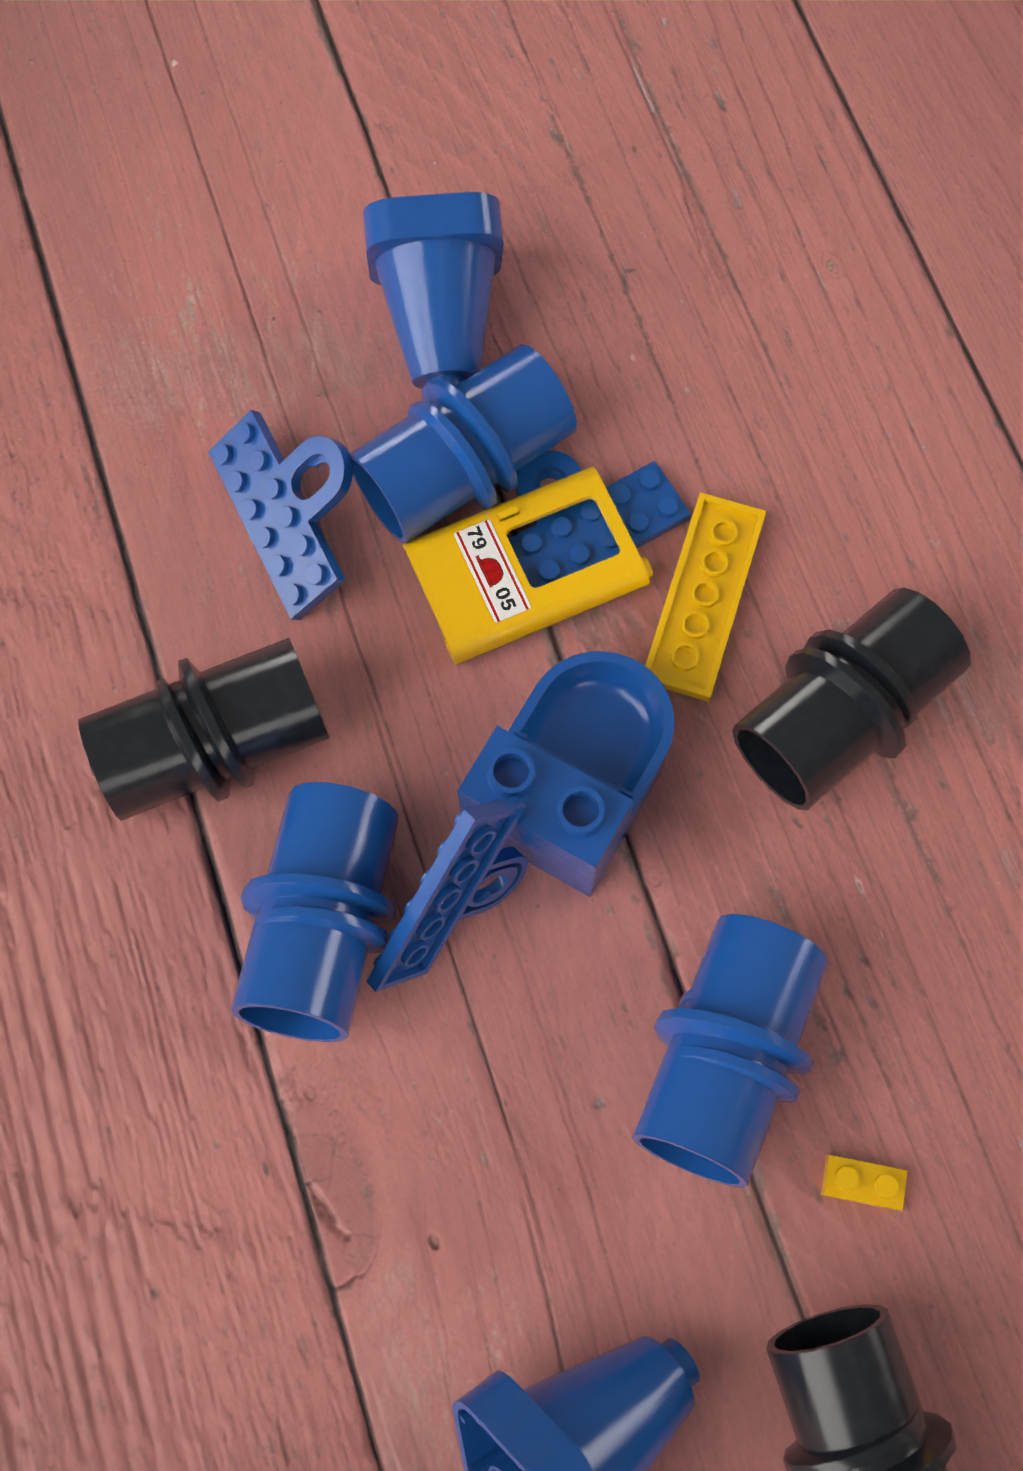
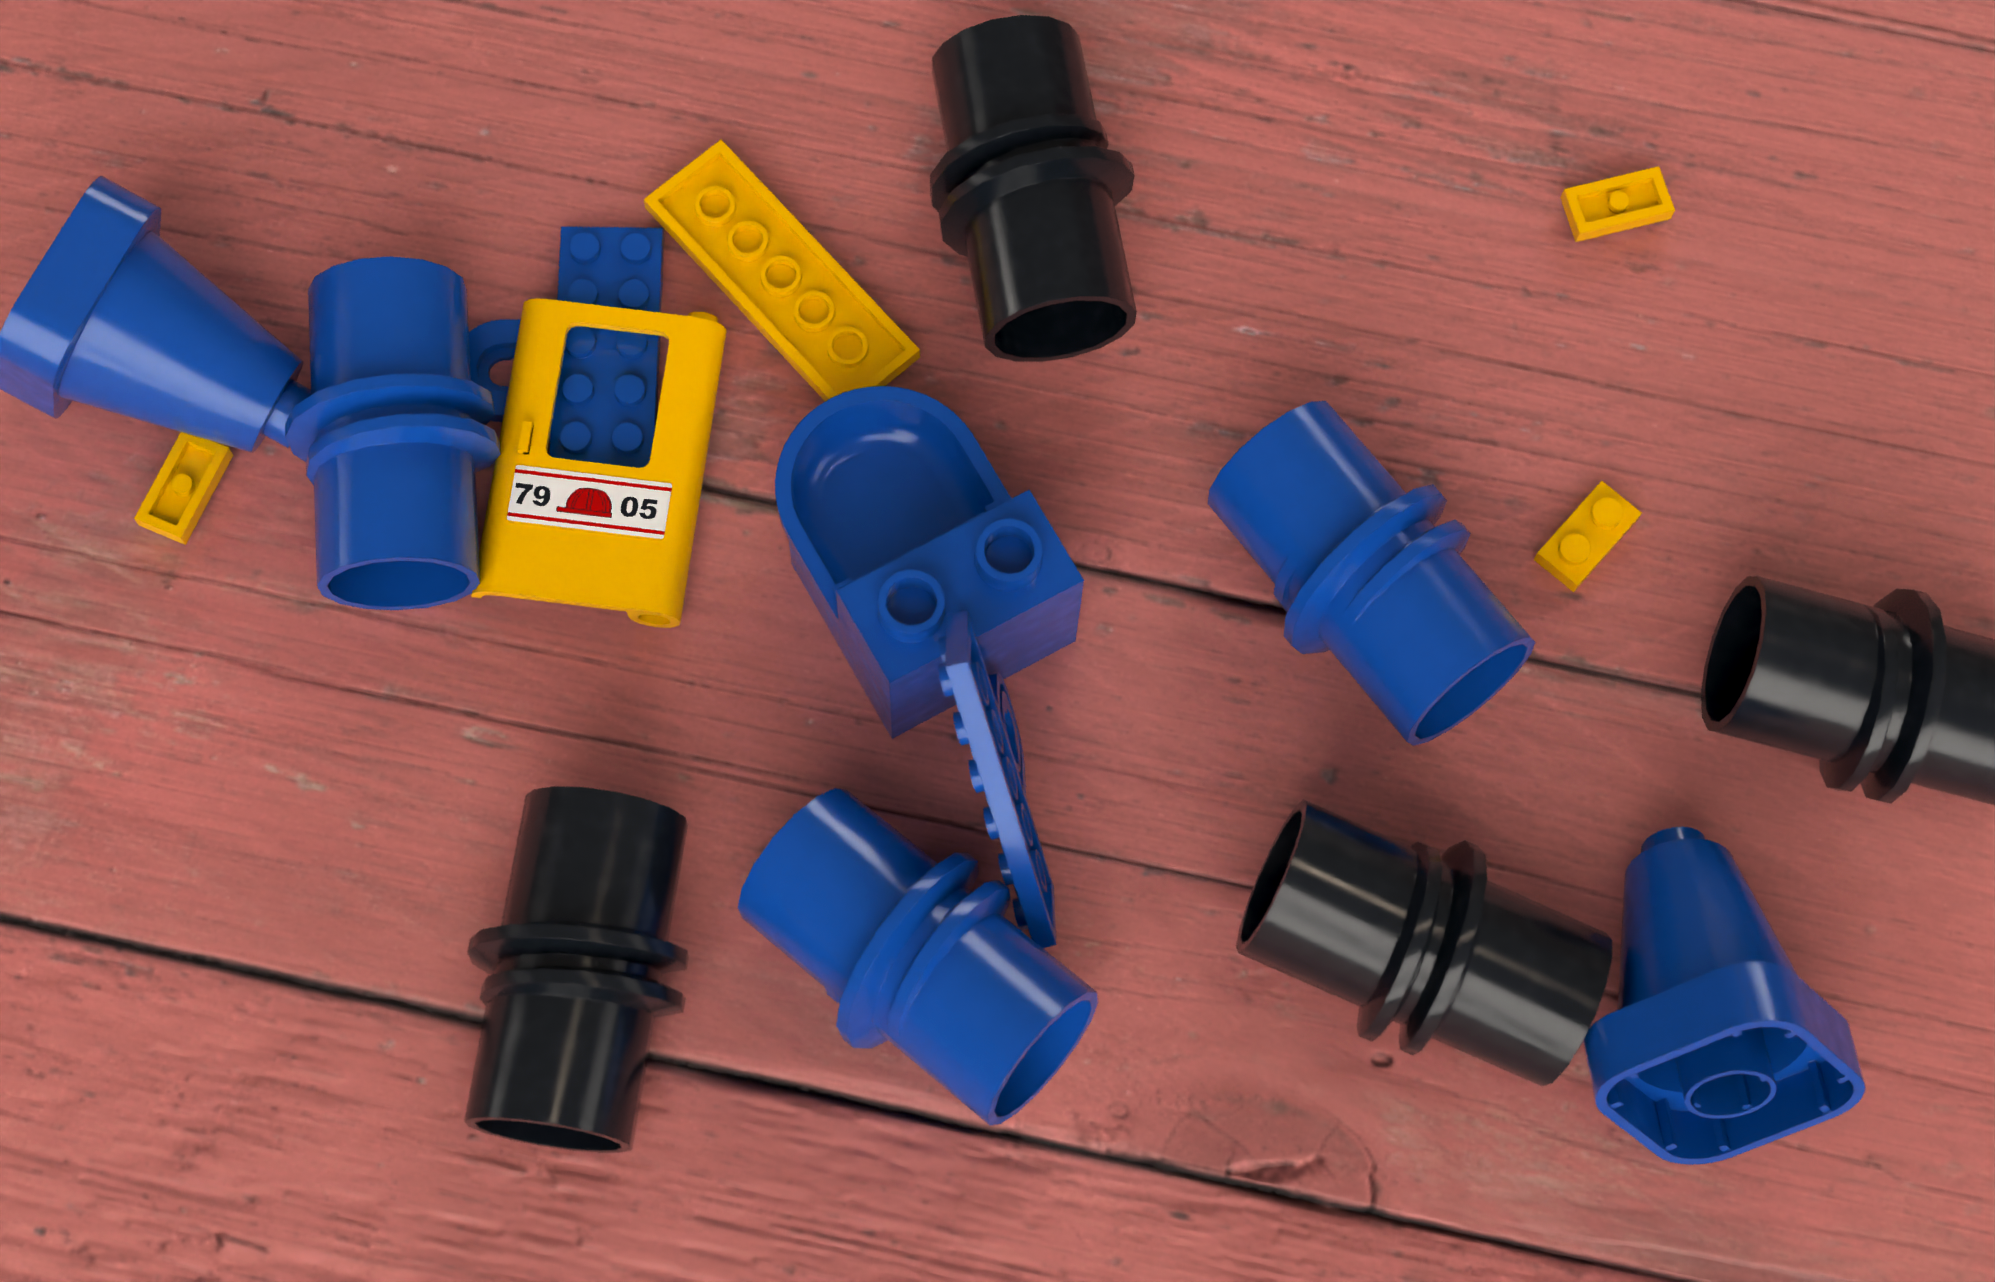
camera: 65 degrees left, 0 degrees up
(276, 512) = (316, 726): plate -> none
(374, 367) = (183, 487): none -> yellow plate
(504, 1231) = (1425, 944): none -> black piece

